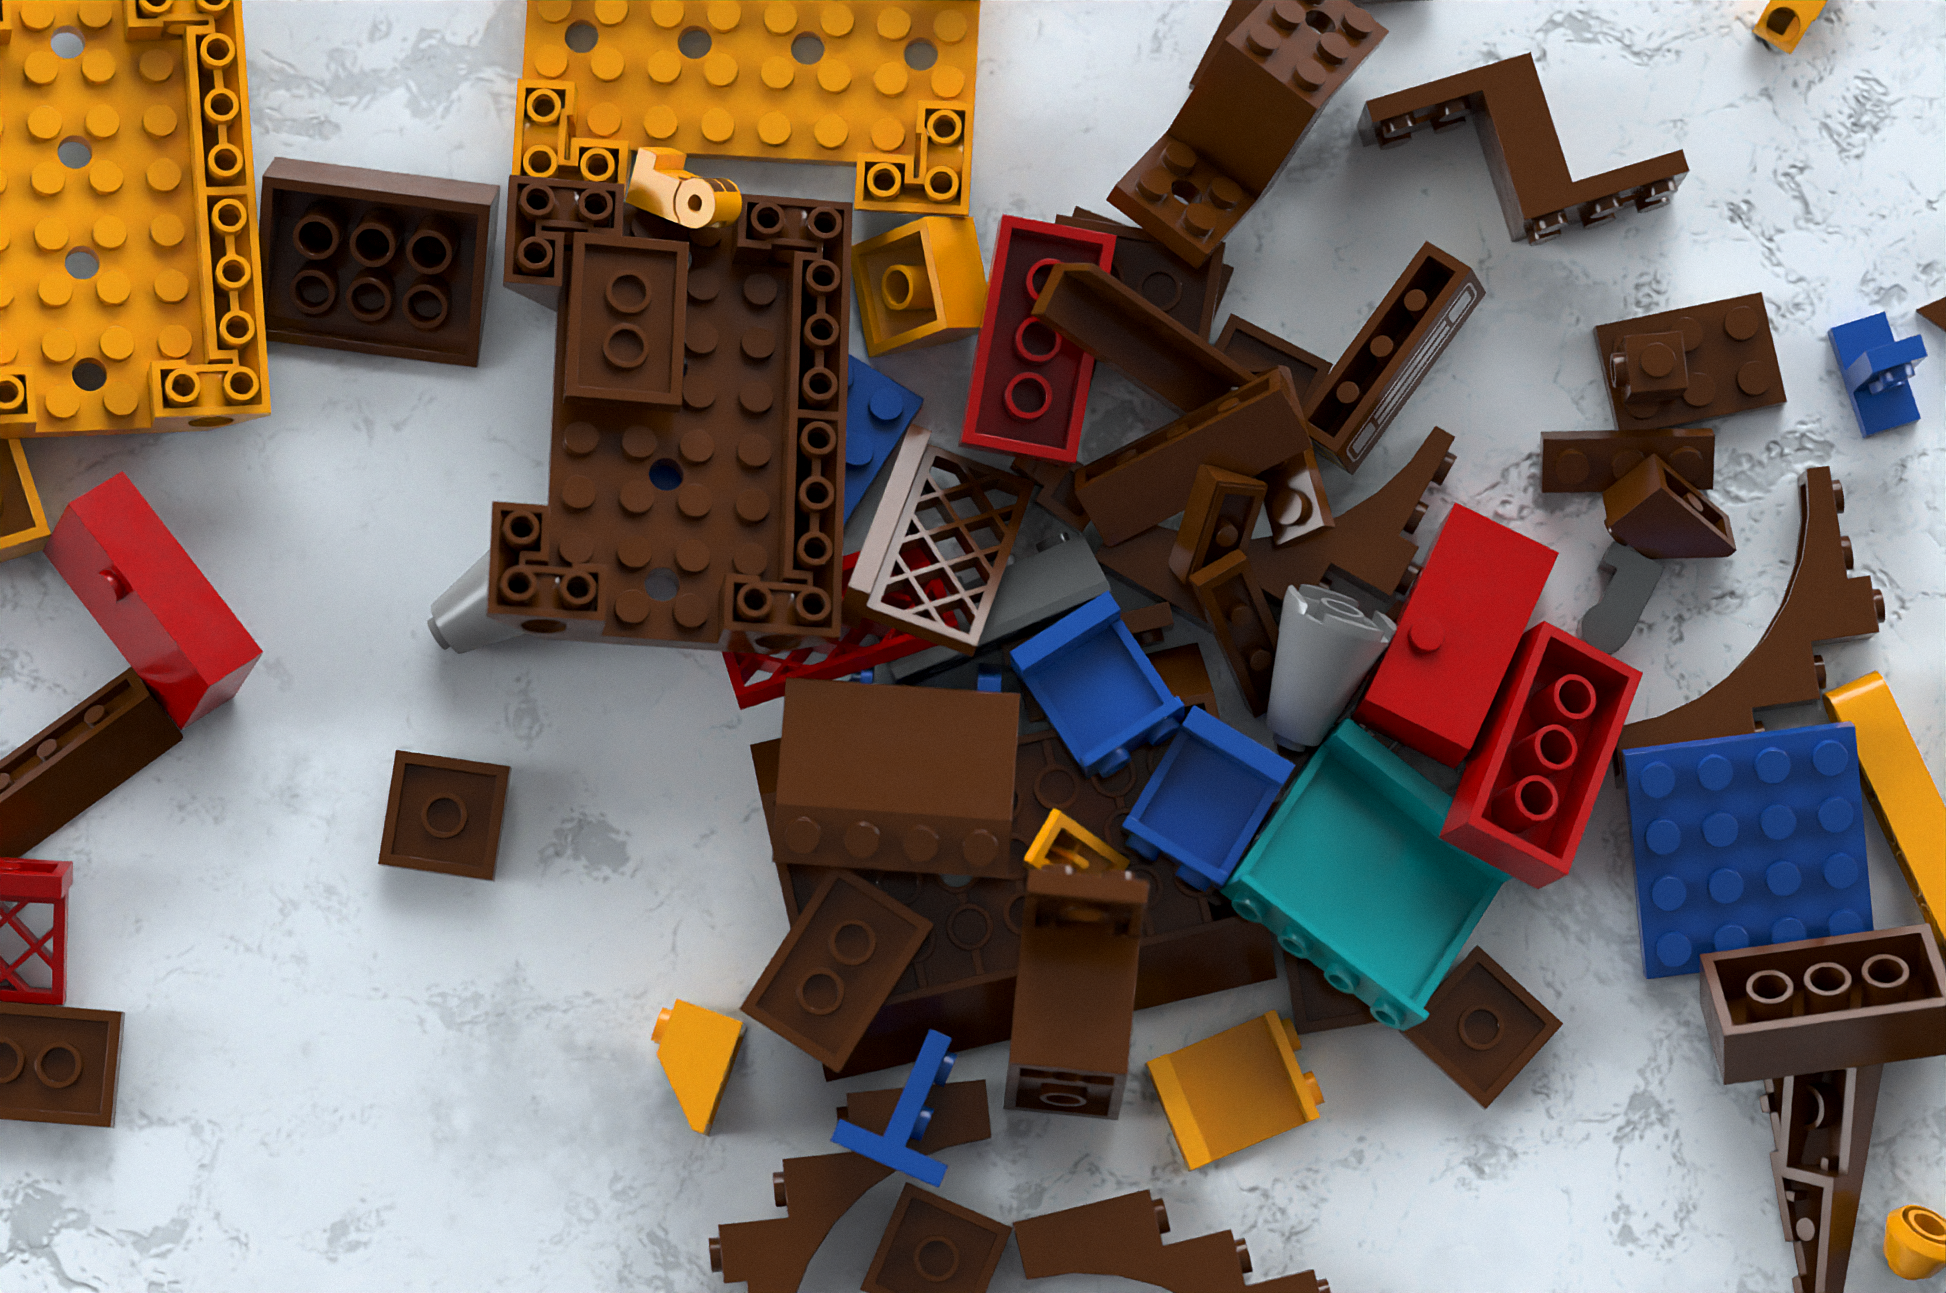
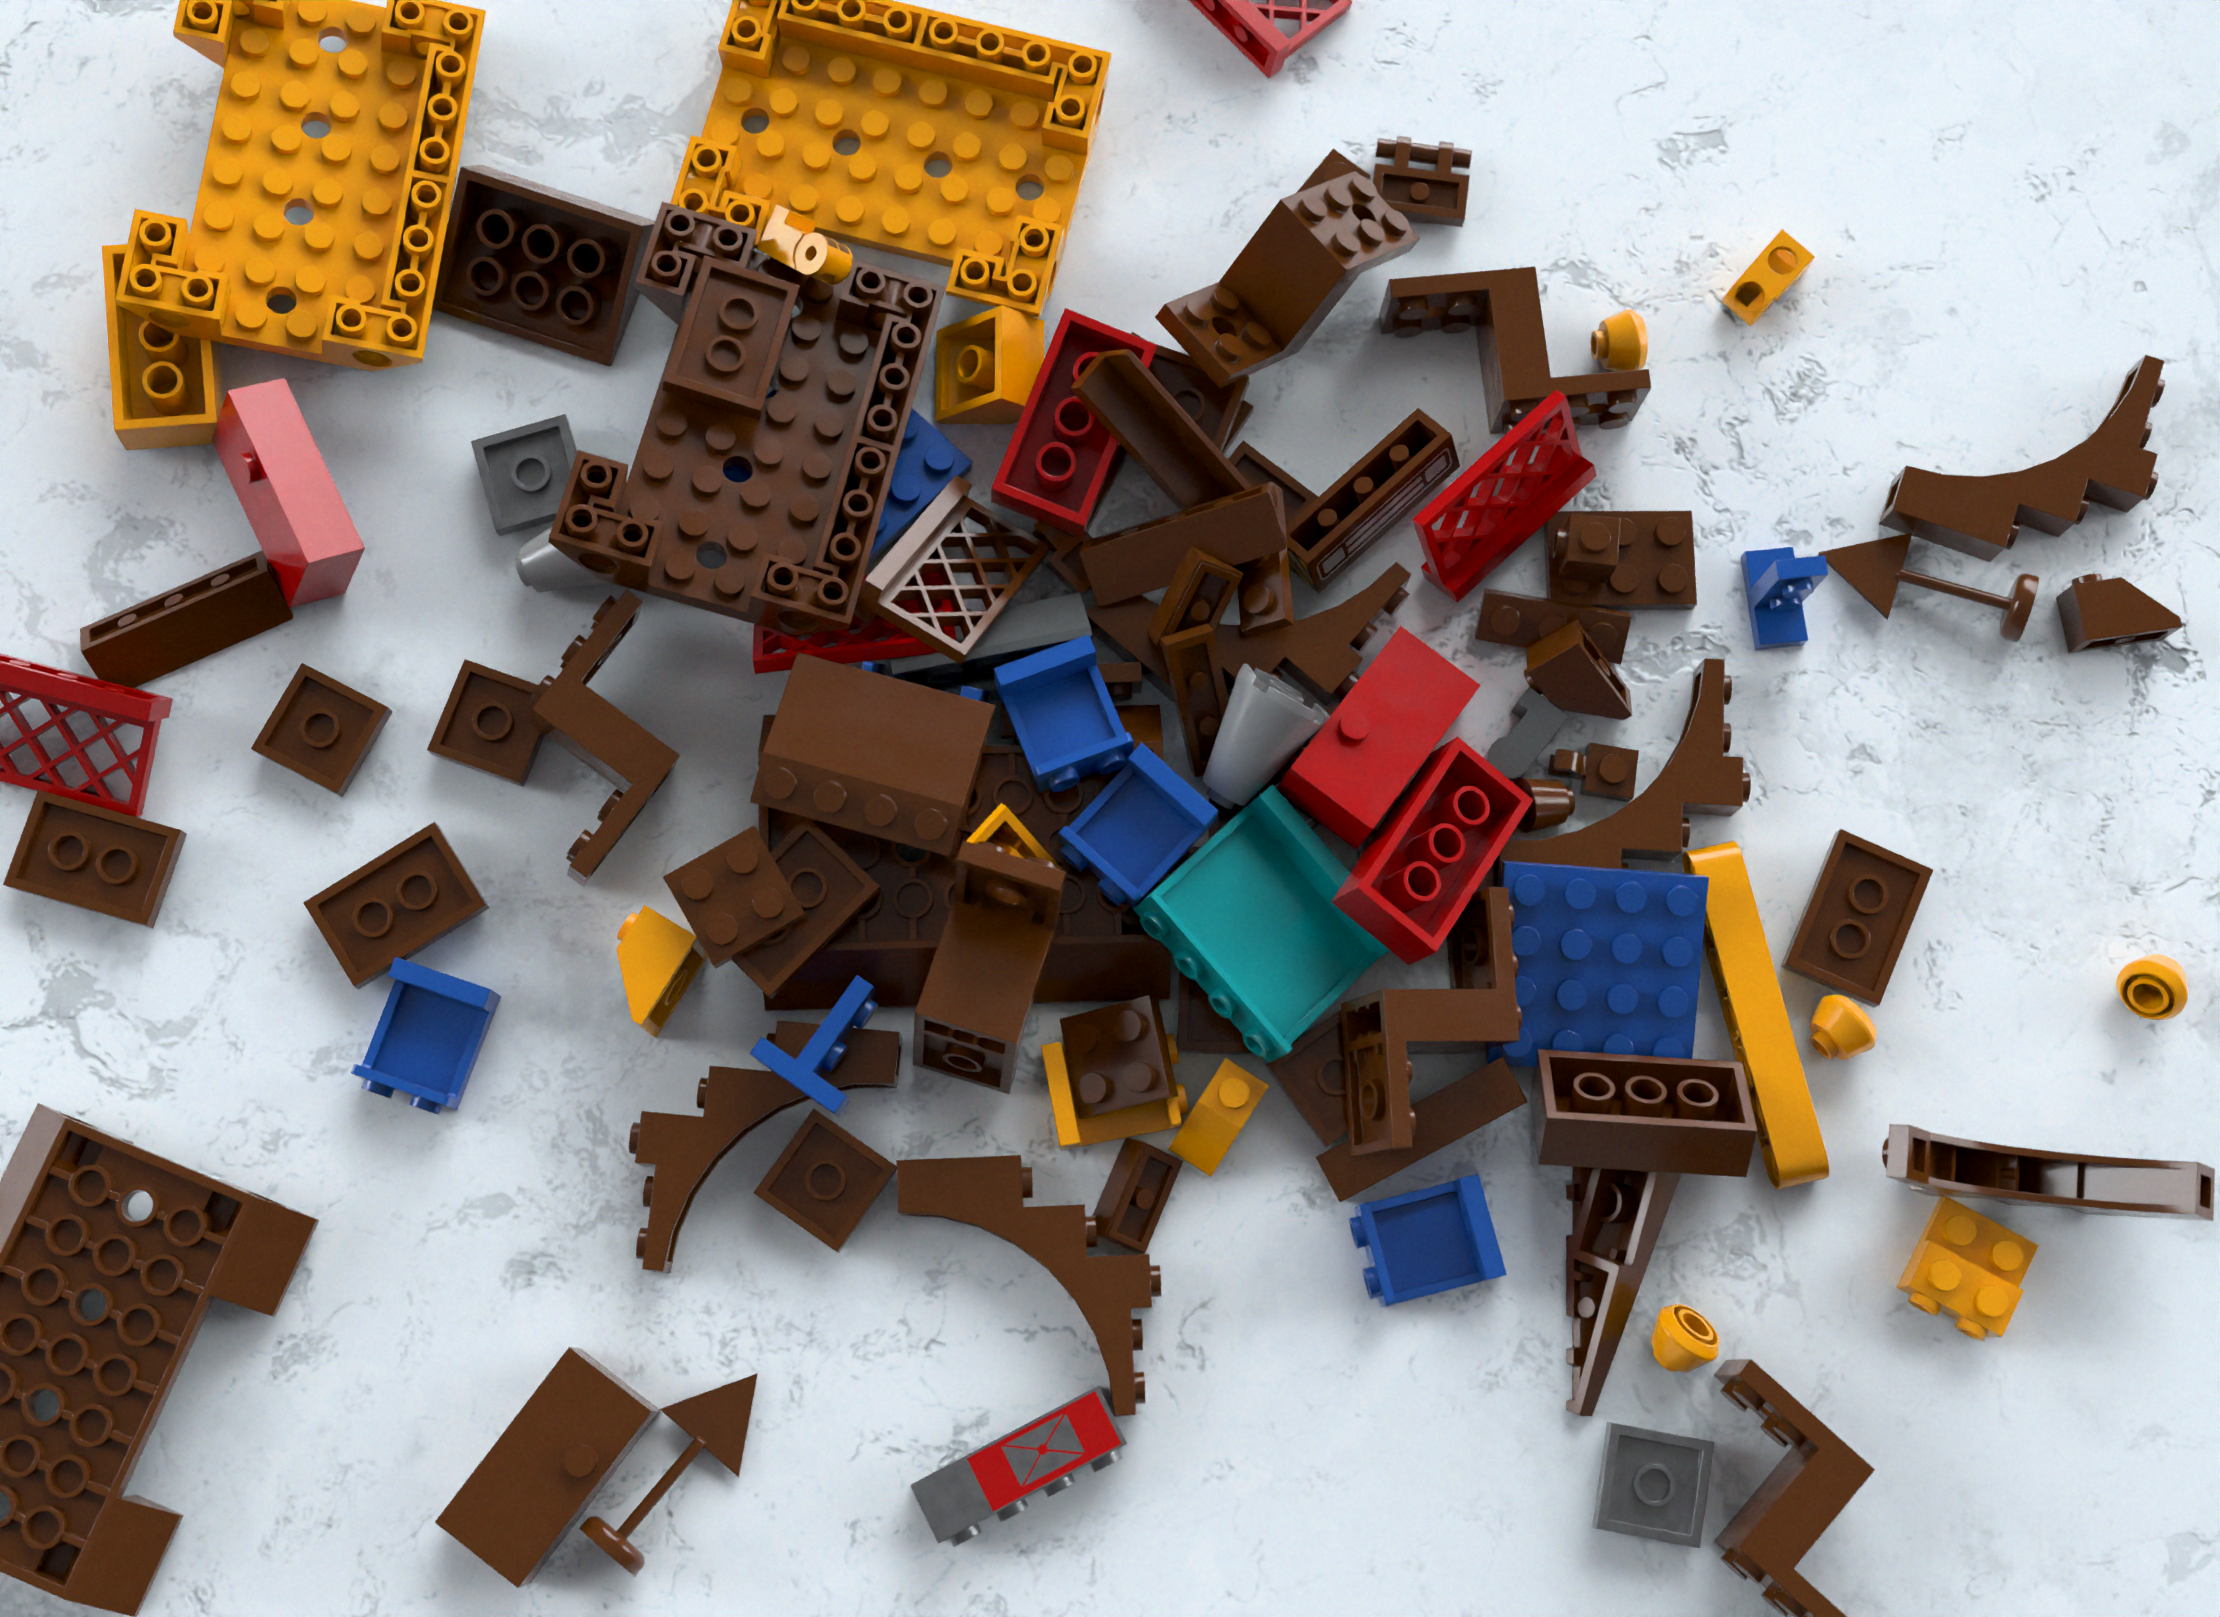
camera: 10 degrees right, 5 degrees down
(251, 863) = (322, 730): none -> reddish brown plate
(384, 1047) = (396, 905): none -> reddish brown plate
(420, 516) = (526, 472): none -> flat silver plate
(454, 1189) = (427, 1037): none -> blue panel
(580, 815) = (601, 734): none -> reddish brown bracket
(776, 970) = (734, 897): none -> reddish brown plate
(1234, 1057) = (1118, 1057): none -> reddish brown plate
(1282, 1204) = (1135, 1195): none -> reddish brown slope
(1358, 1100) = (1218, 1117): none -> light orange slope
(1546, 351) = (1526, 500): none -> red fence
(1587, 1068) = (1439, 1122): none -> reddish brown slope
(1616, 1191) = (1427, 1241): none -> blue panel
(1622, 933) = (1466, 1019): none -> reddish brown bracket
(1644, 108) = (1620, 342): none -> light orange cone
(1662, 668) = (1550, 804): none -> reddish brown hat
(1715, 616) = (1604, 770): none -> reddish brown plate

